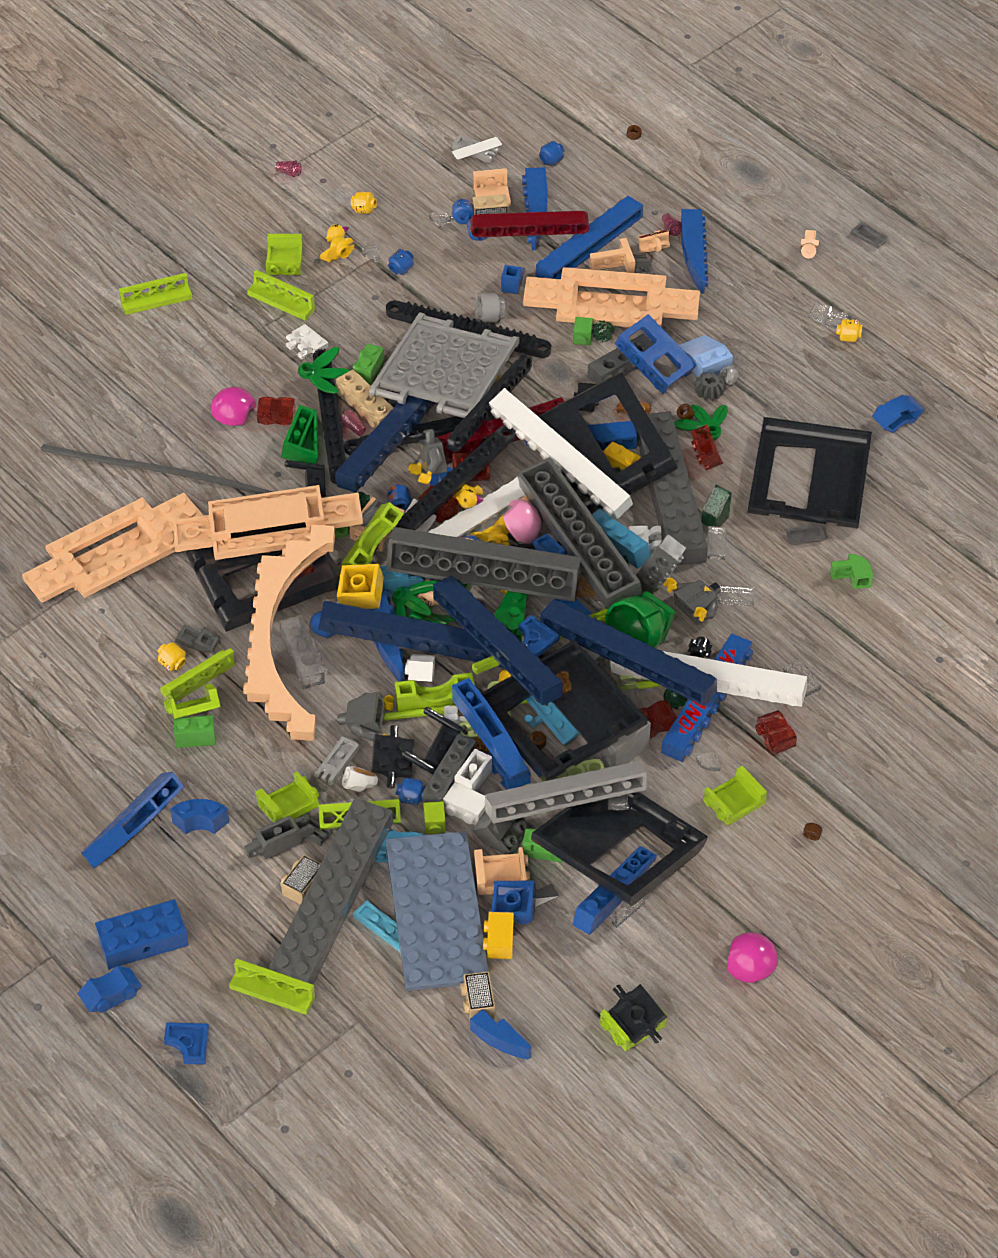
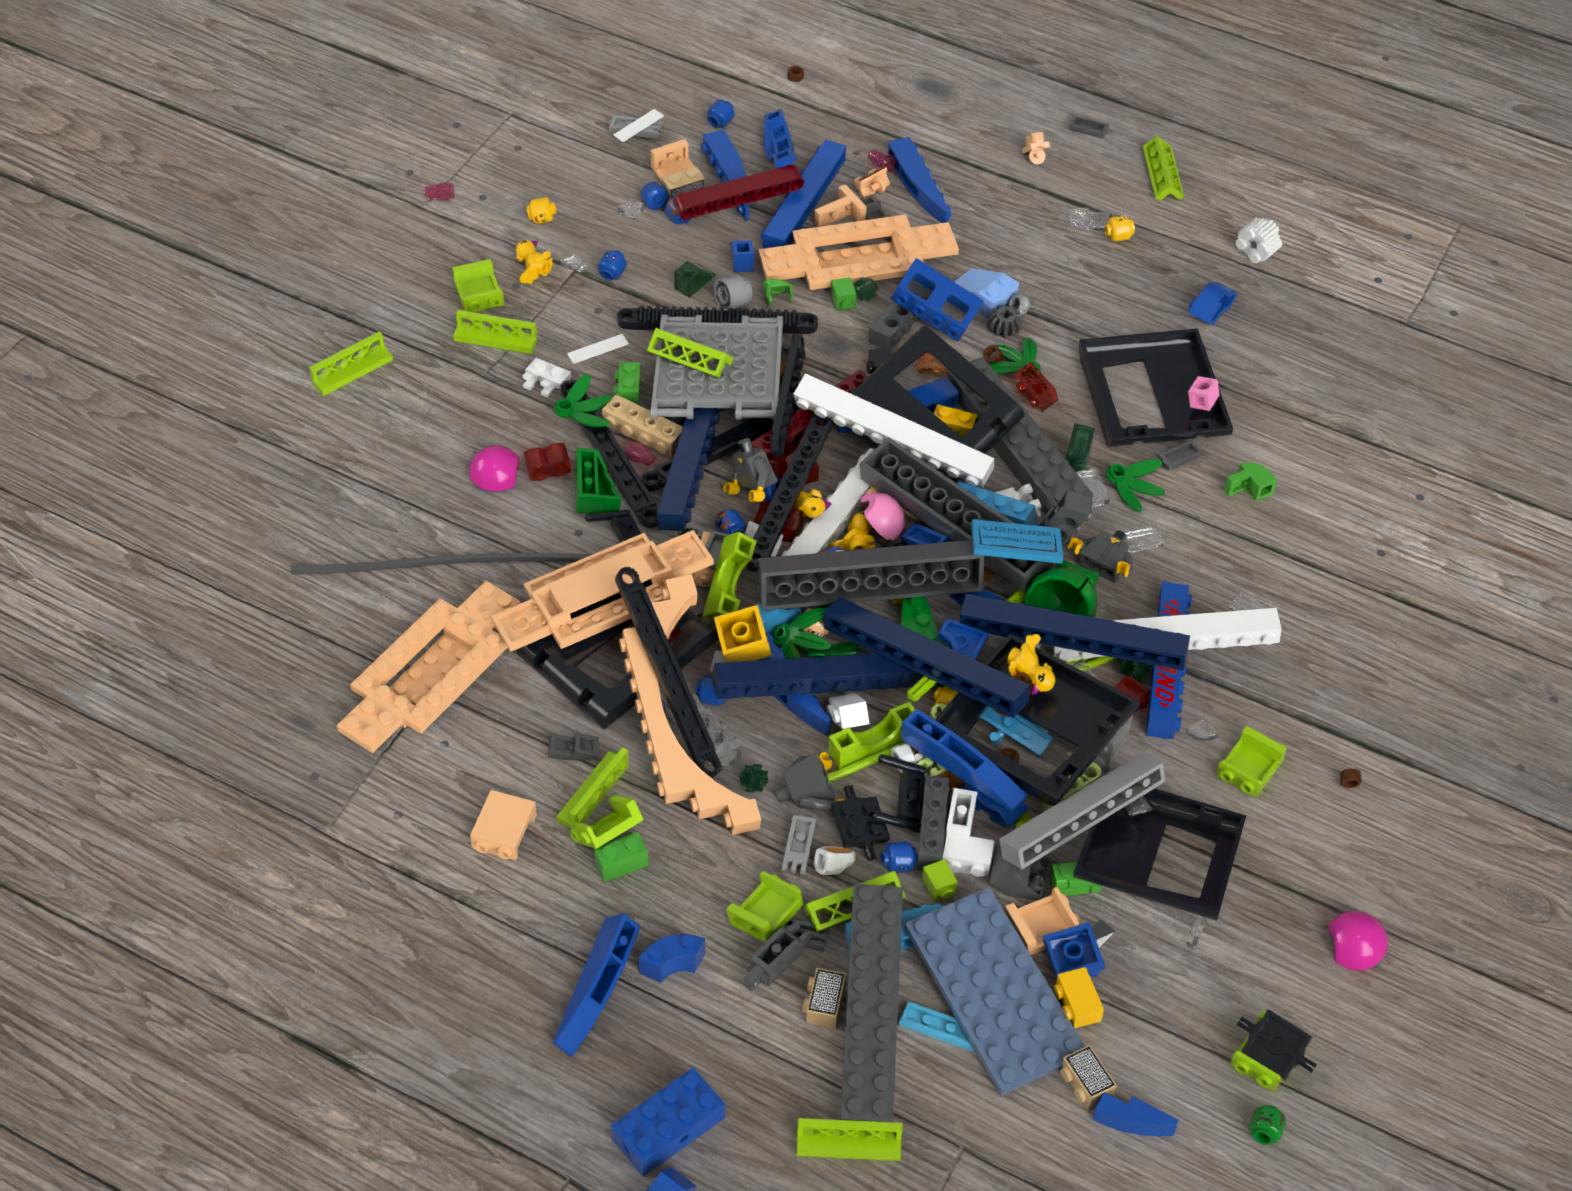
camera: 20 degrees left, 0 degrees up
(115, 682) = (502, 824): none -> light nougat panel
(171, 656) = (554, 775): yellow head -> none
(283, 598) = (668, 671): none -> black plate
(324, 700) = (753, 778): none -> clear green gear
(360, 328) = (597, 348): none -> white sticker
(422, 341) = (693, 347): none -> lime fence
(462, 287) = (691, 278): none -> clear green slope
(527, 312) = (776, 287): none -> bright green piece
(573, 663) = (1027, 661): none -> yellow animal
(589, 187) = (777, 140): none -> blue piece
(601, 902) = (1175, 921): blue slope -> none
(602, 1072) = (1267, 1125): none -> green head
(610, 566) = (1016, 541): none -> dark azure tile
(700, 647) = (1134, 606): black gear -> none
(749, 544) = (1125, 481): none -> green plant
(776, 732) = (1258, 677): clear red brick -> none
(845, 487) = (1203, 393): none -> bright pink brick
(913, 284) = (1162, 169): none -> lime fence
(966, 368) = (1259, 239): none -> white brick

